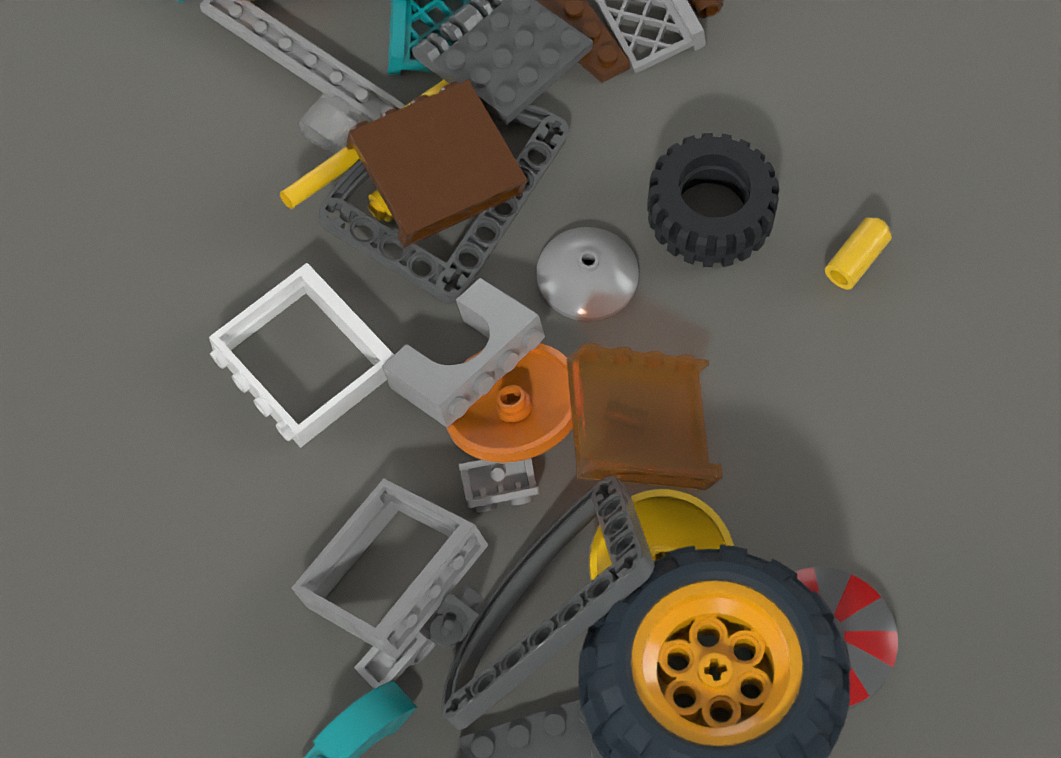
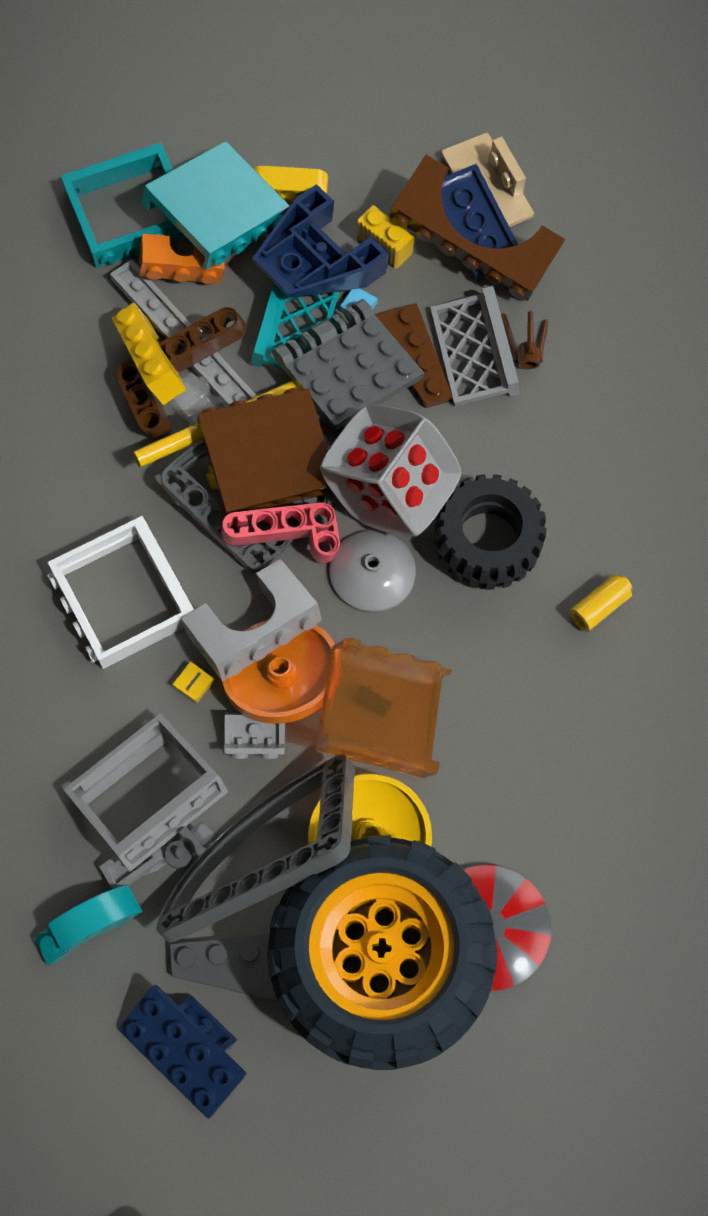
camera: 10 degrees right, 5 degrees up
(270, 80) = (147, 354): none -> yellow arch
(301, 87) = (195, 351): none -> reddish brown beam
(411, 439) = (193, 682): none -> yellow tile
(473, 246) = (281, 531): none -> coral beam
(586, 149) = (391, 469): none -> light grey piece

